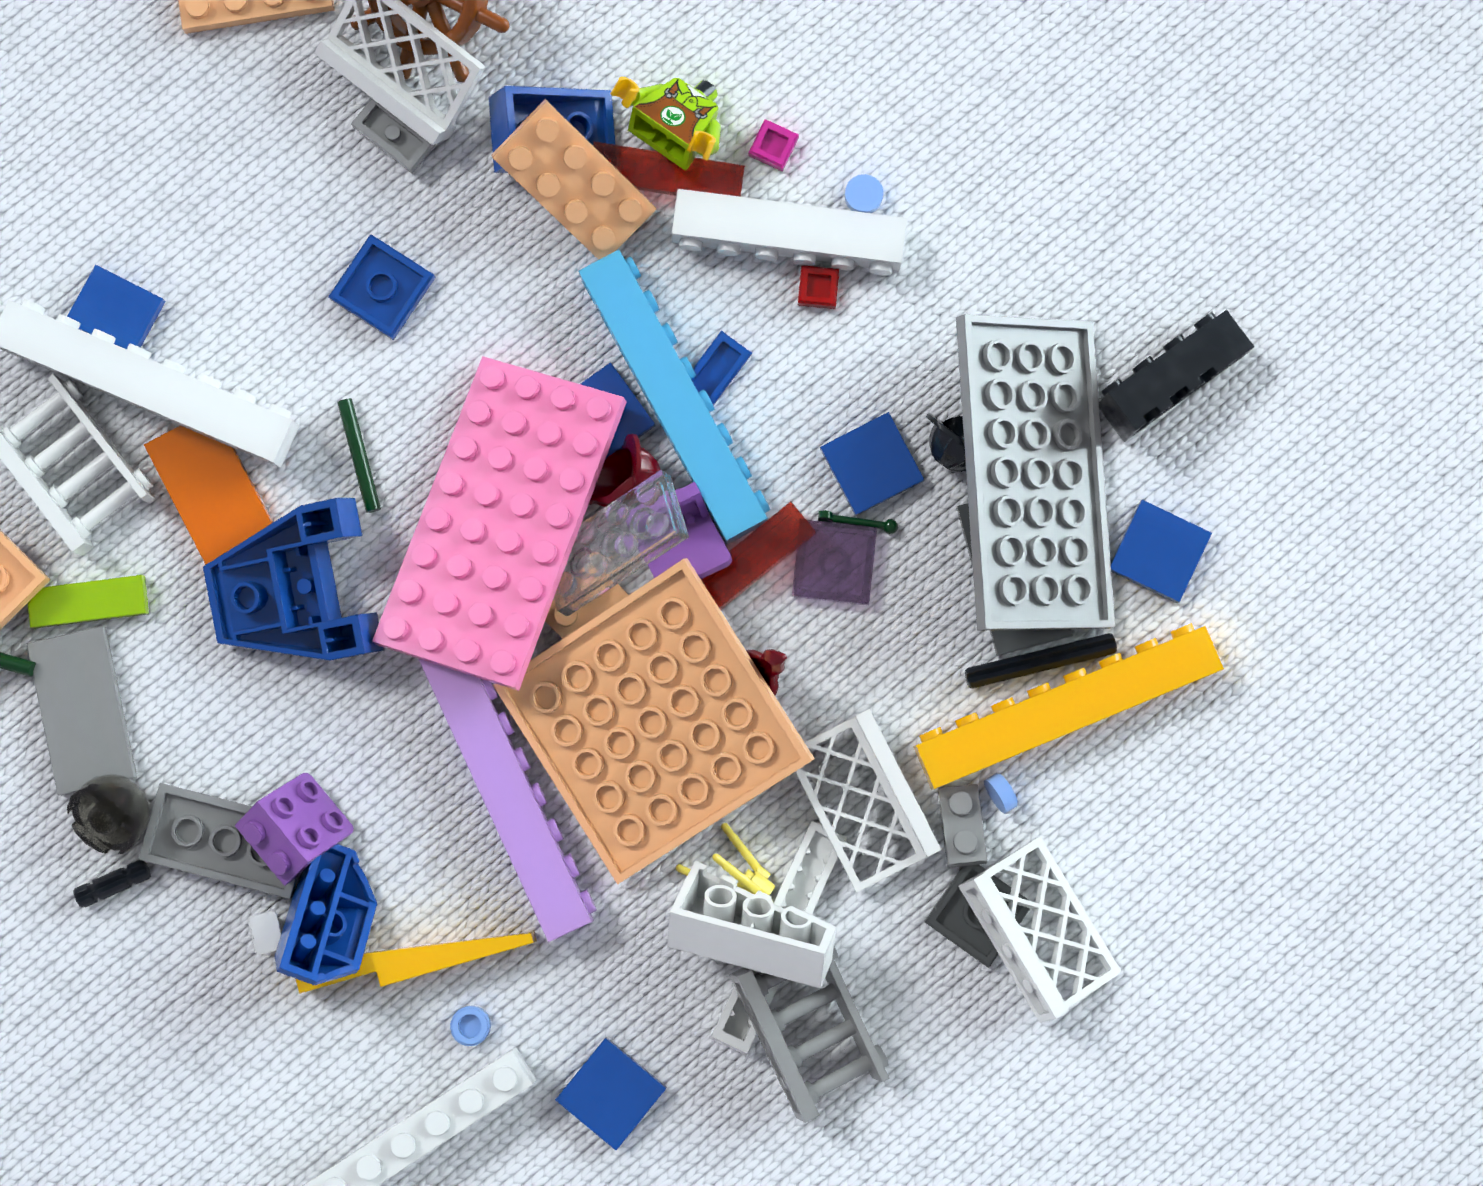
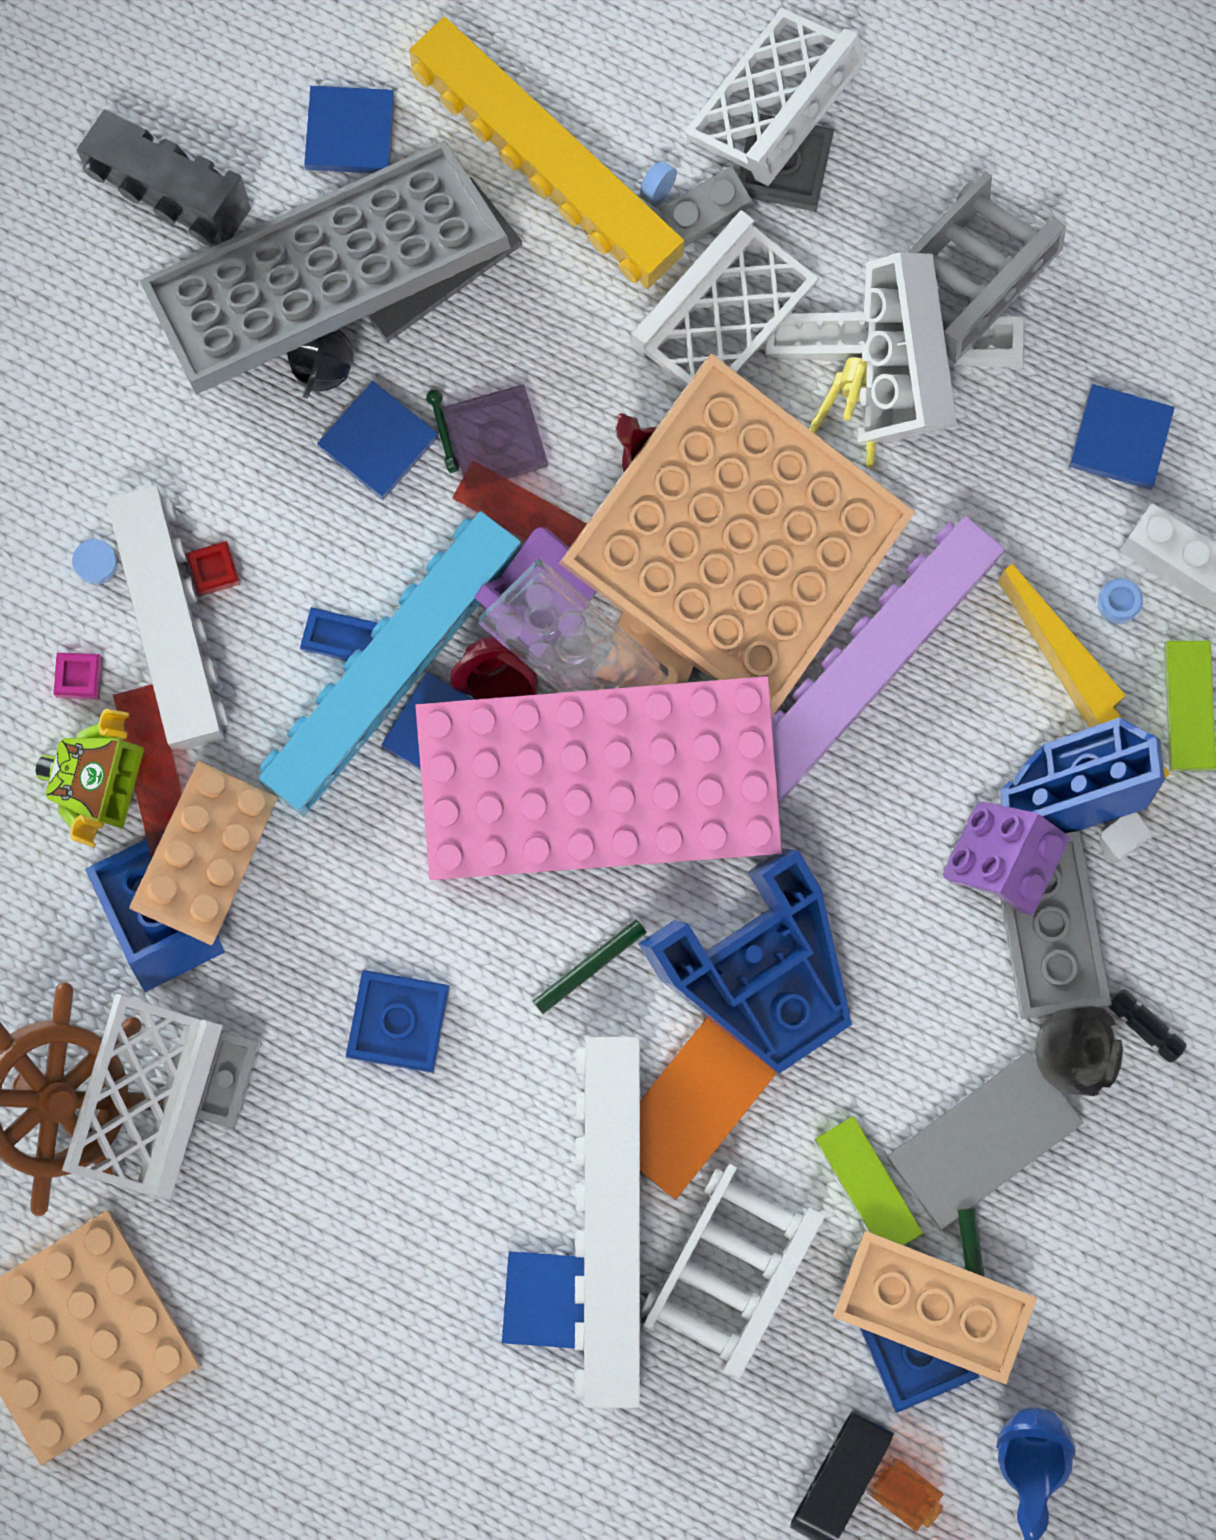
camera: 115 degrees left, 5 degrees down
(356, 1043) = (1190, 706): none -> lime tile
(1040, 660) = (509, 199): black axle -> none

